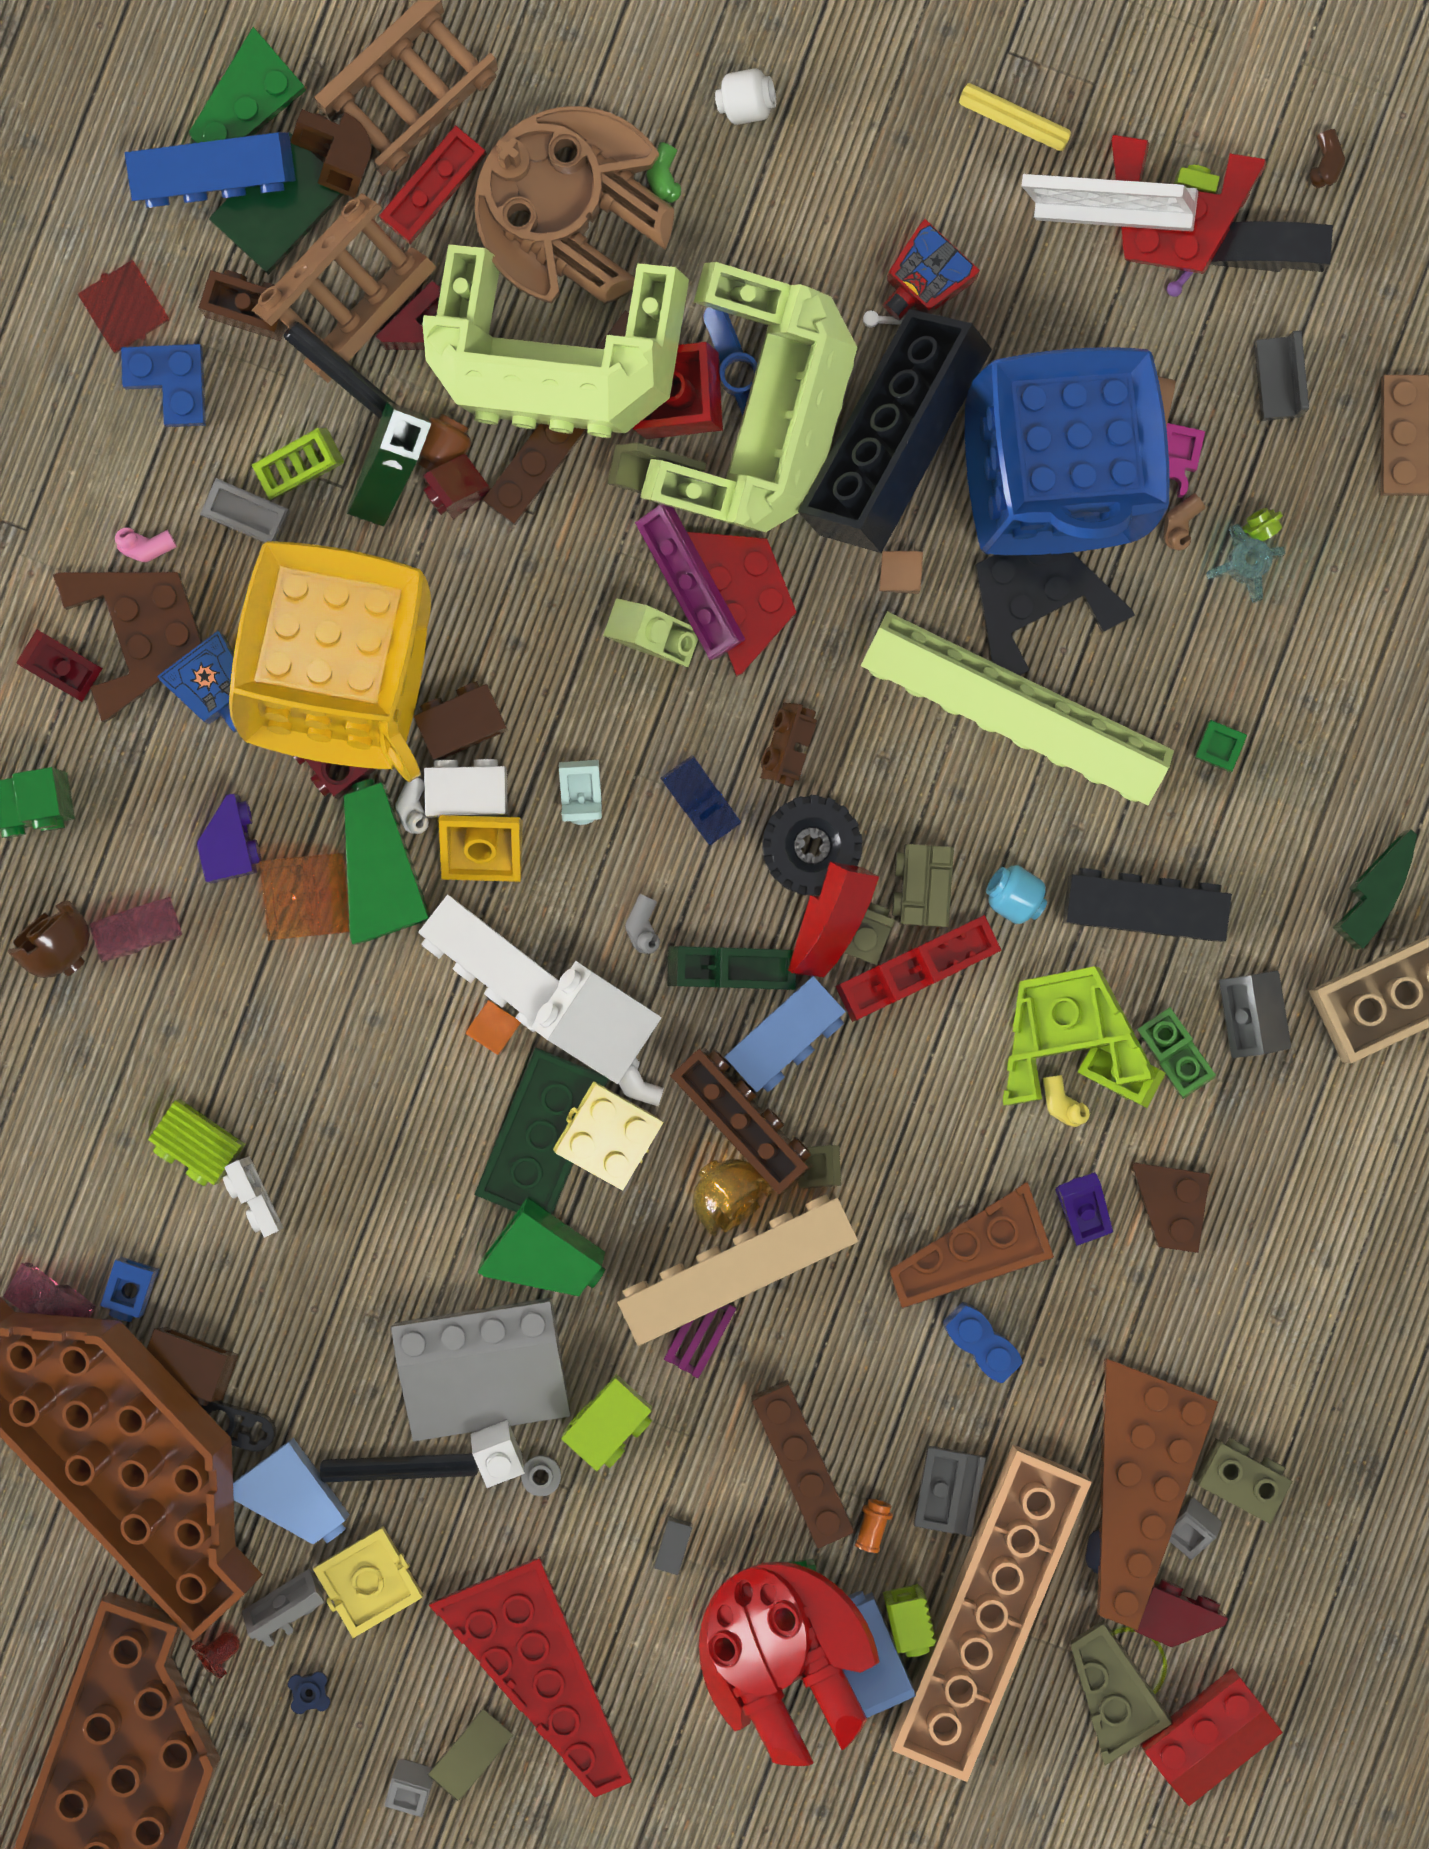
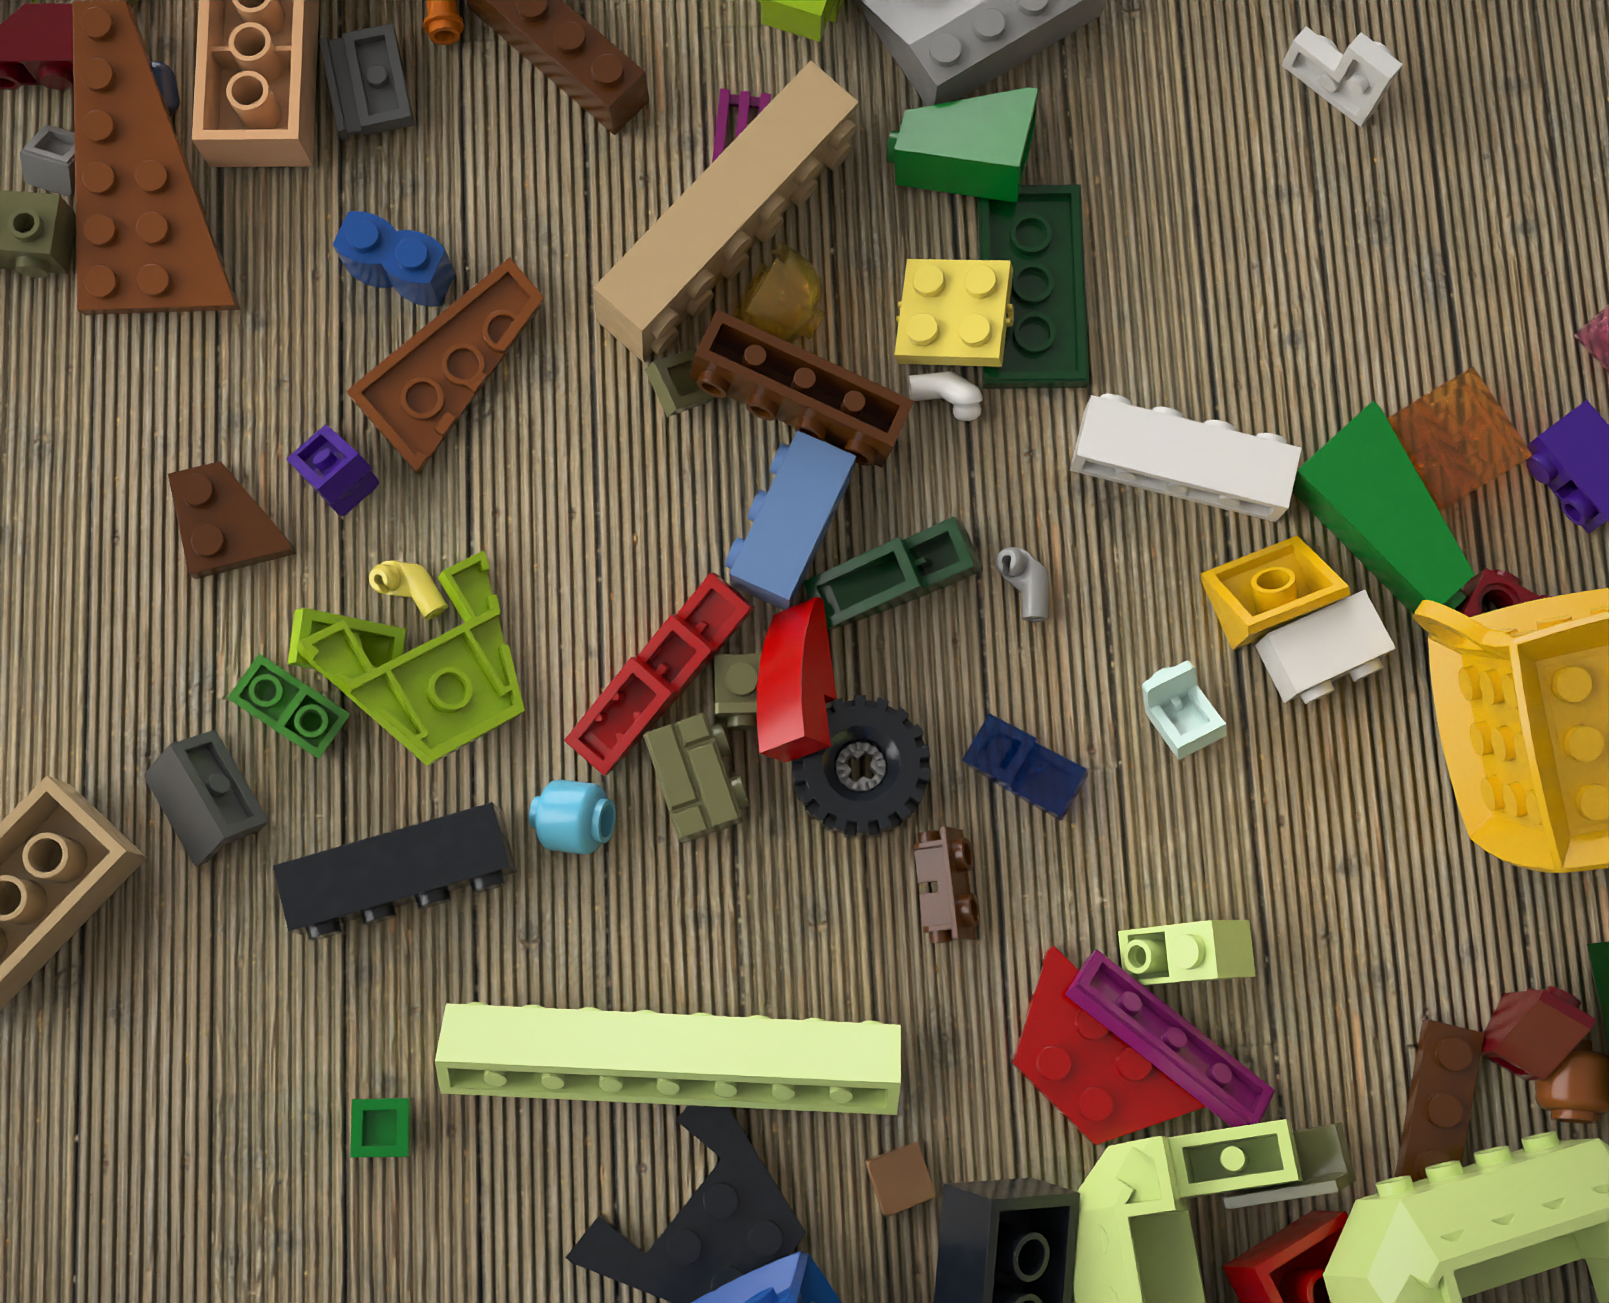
camera: 160 degrees right, 10 degrees down
(195, 1142) = (1436, 108): lime brick -> none
(410, 809) = (1383, 599): white arm -> none
(460, 721) = (1373, 733): reddish brown brick -> none
(493, 1027) = (1151, 378): orange slope -> none
(595, 1022) = (1034, 430): white brick -> none
(1377, 891) = (97, 1025): dark green slope -> none

